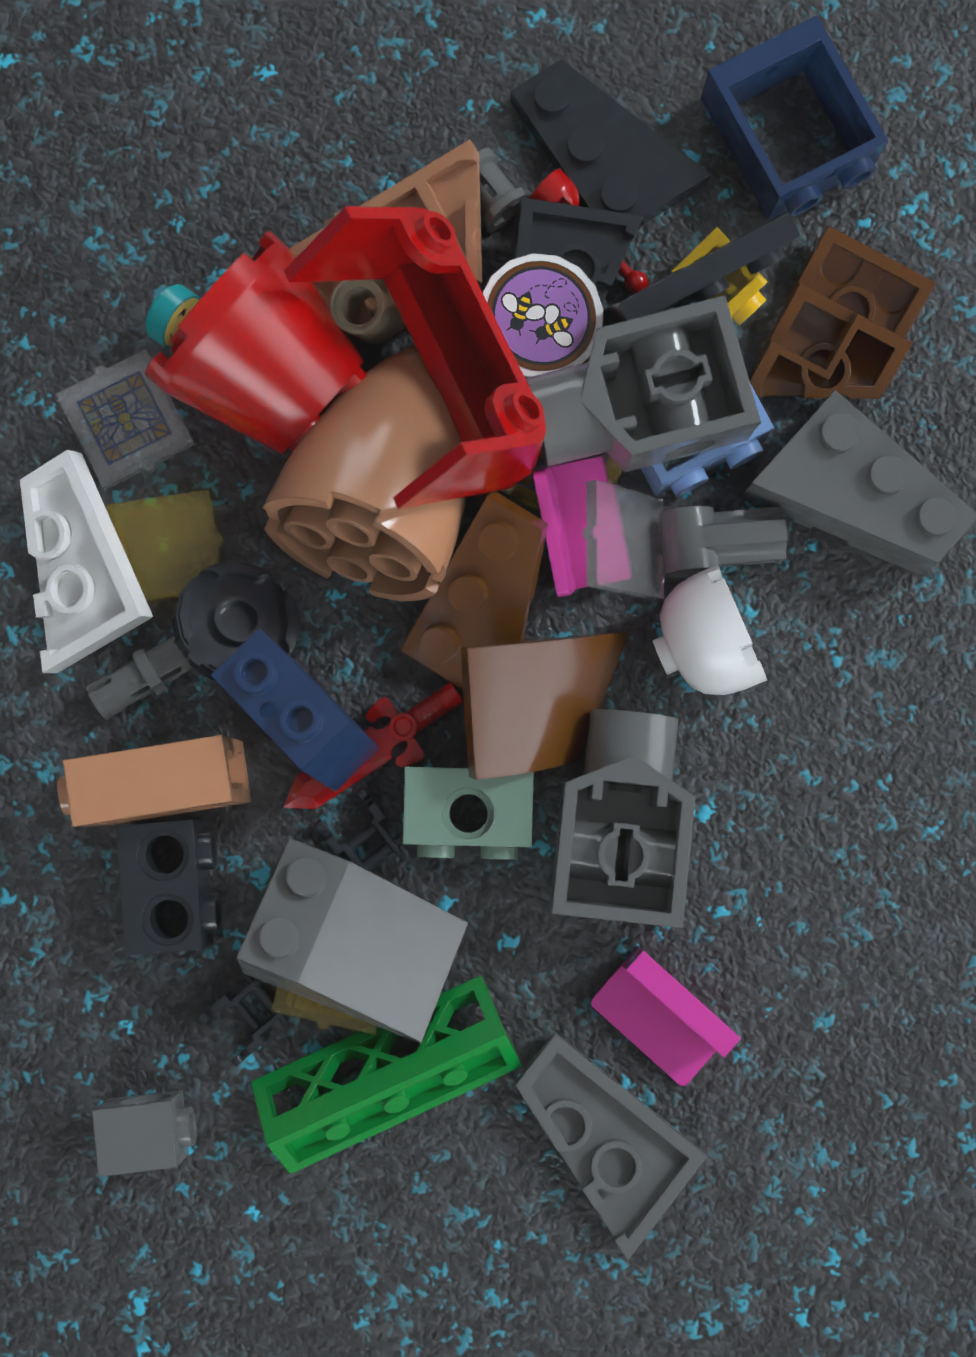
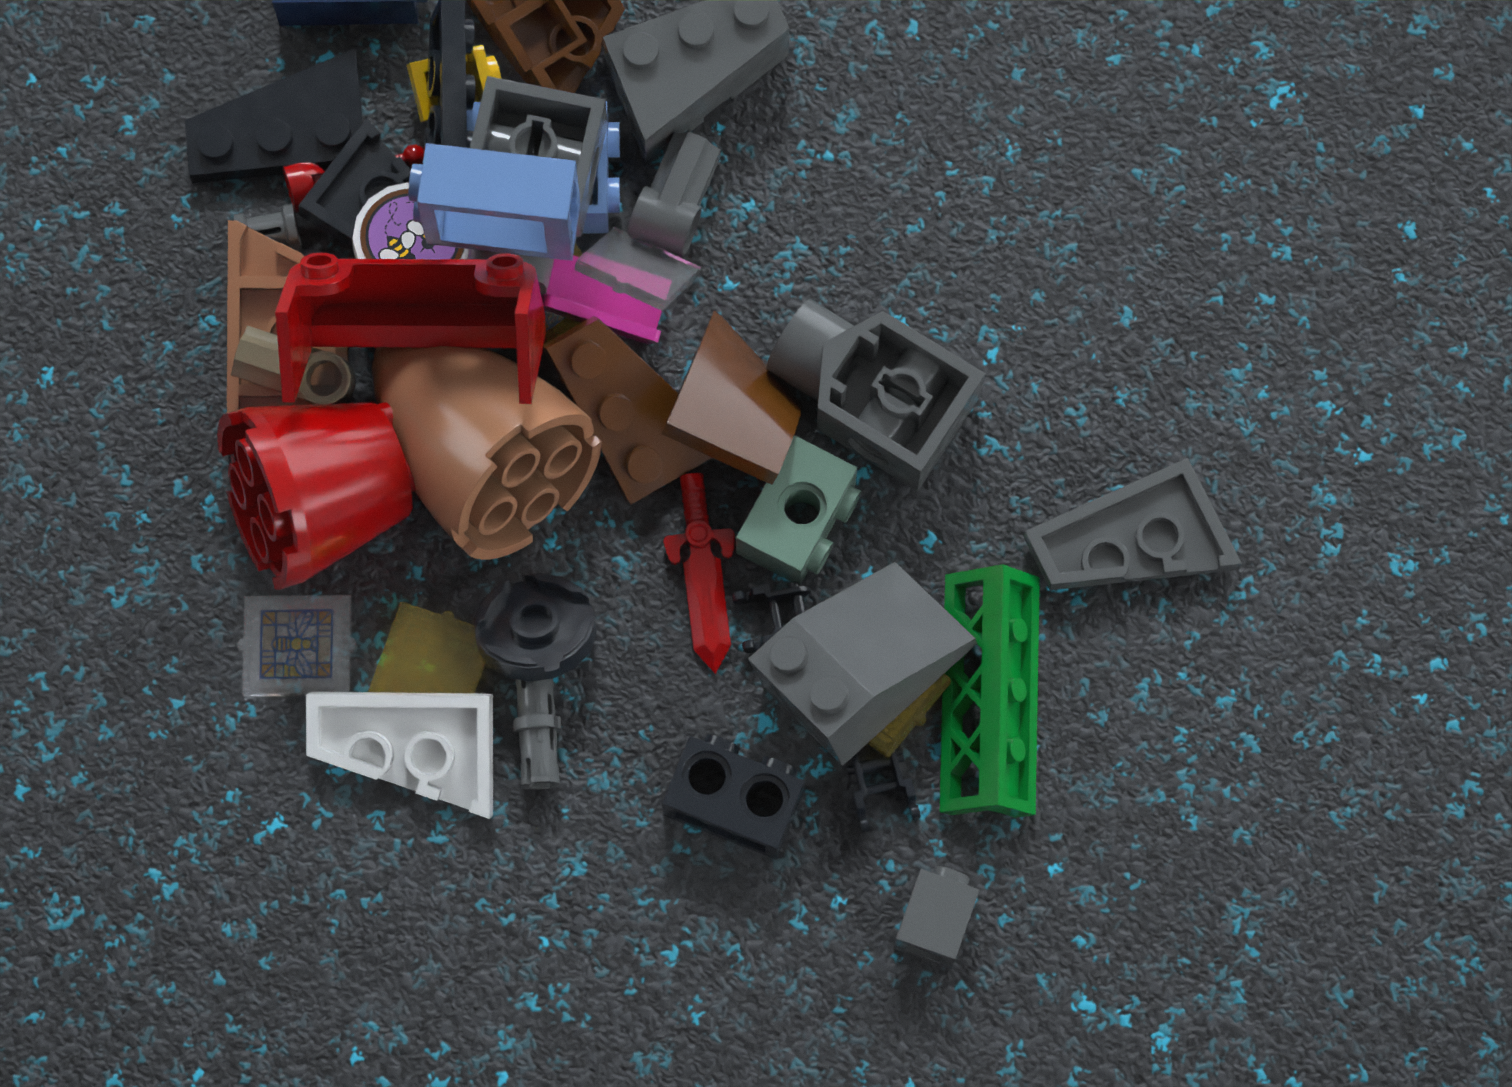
camera: 65 degrees left, 10 degrees down
(154, 781) = (642, 748): nougat window -> none
(168, 312) = (232, 553): teal tile -> none
(295, 711) = (627, 592): dark blue window -> none
(585, 364) = (496, 201): none -> medium blue window
(662, 1017) = (1054, 439): dark pink panel -> none
(707, 637) = (754, 240): white cylinder -> none

